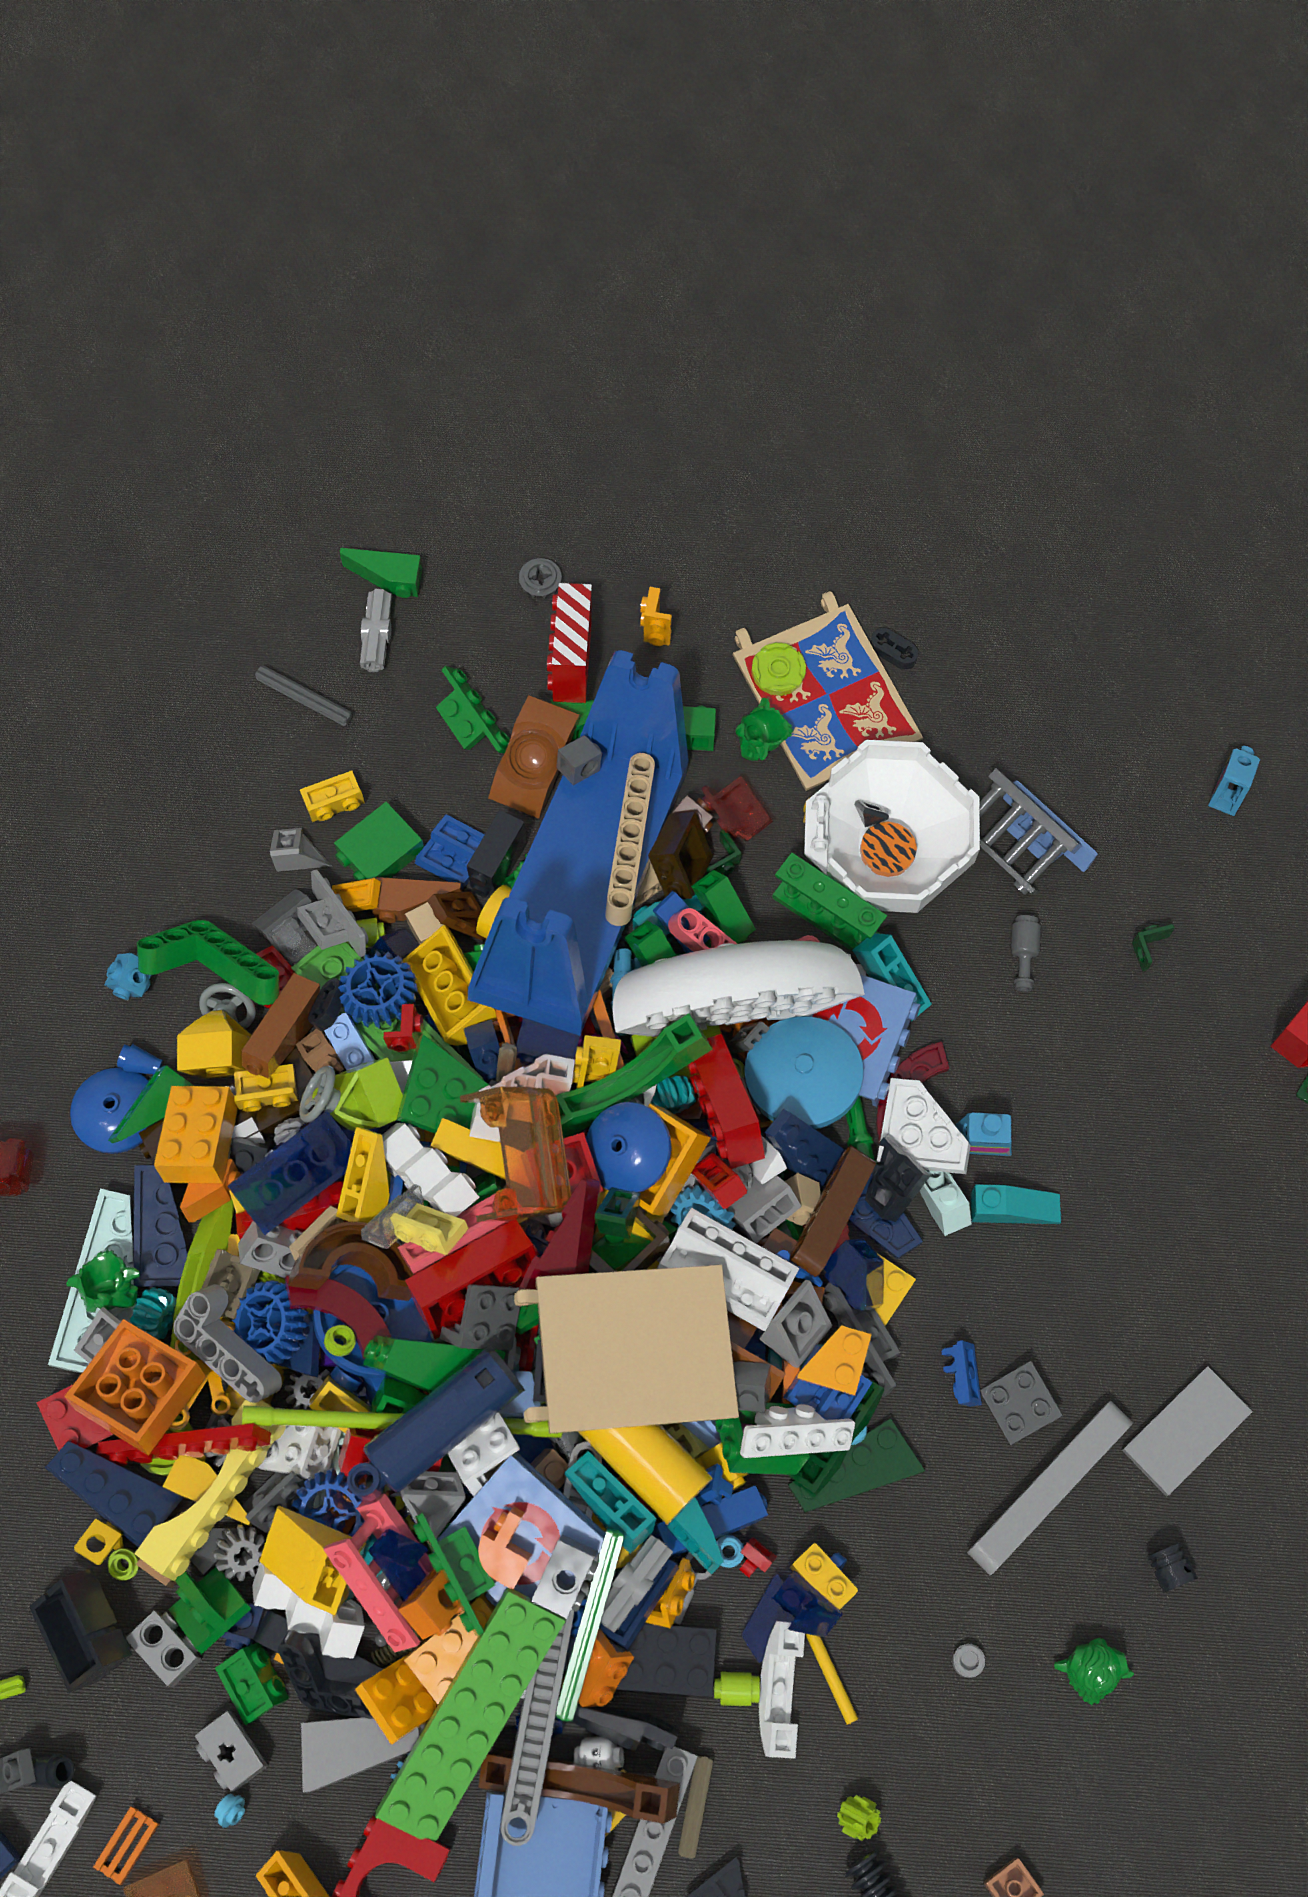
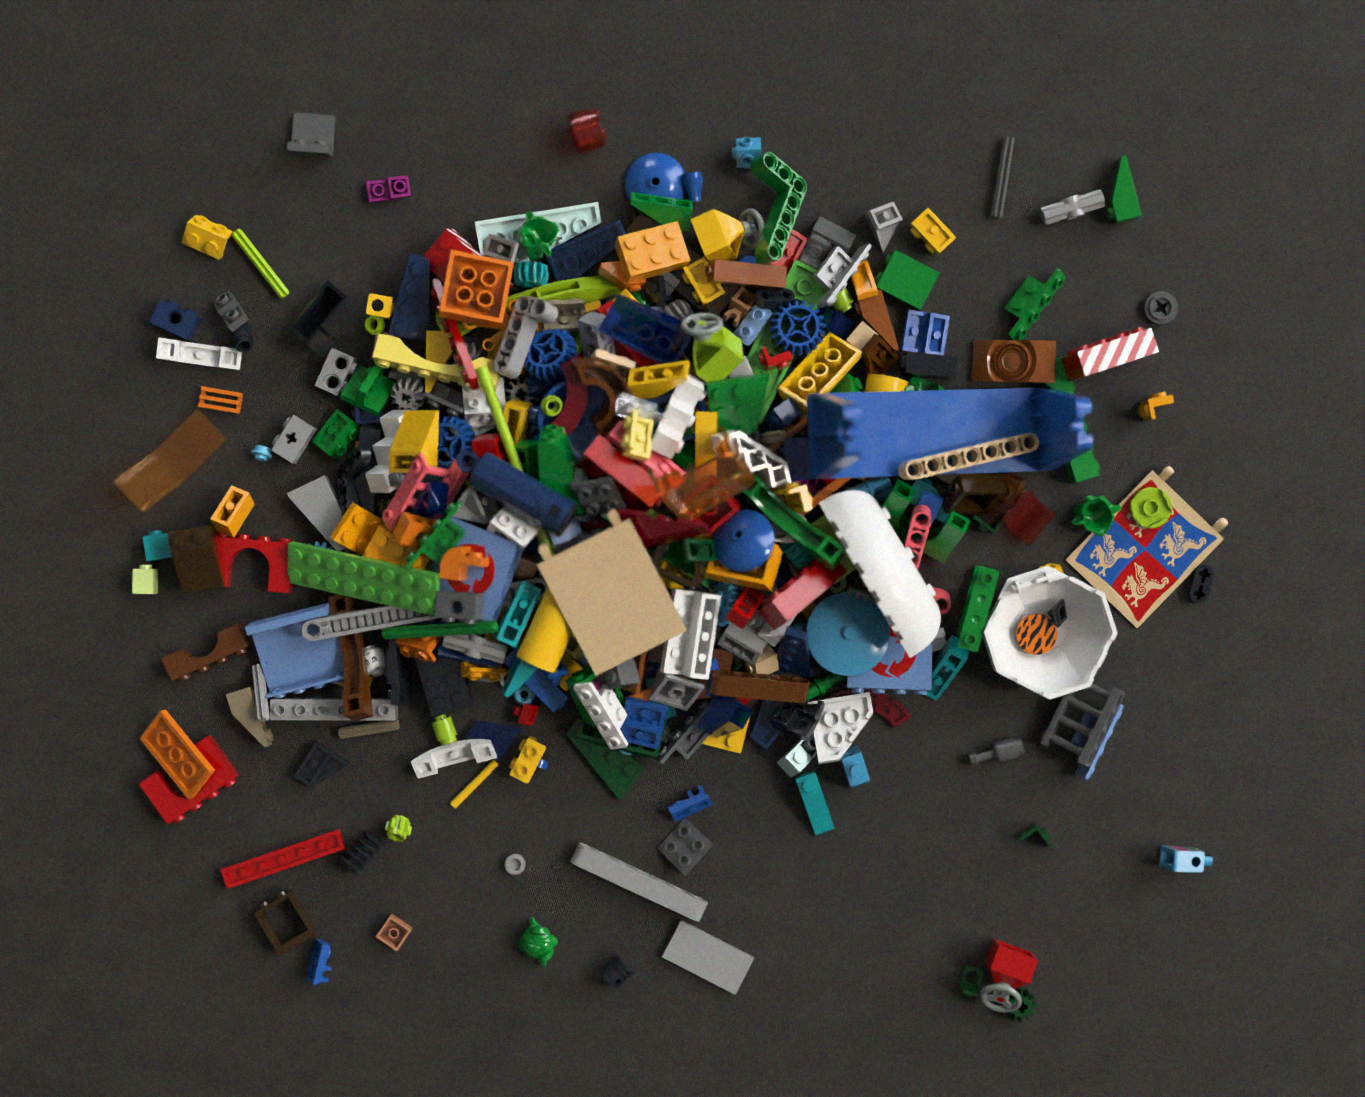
camera: 70 degrees right, 20 degrees up
(579, 760) = (1018, 396): dark grey brick -> none
(812, 1610) = (506, 759): clear blue slope -> none
(838, 1361) = (660, 724): light orange wing -> none

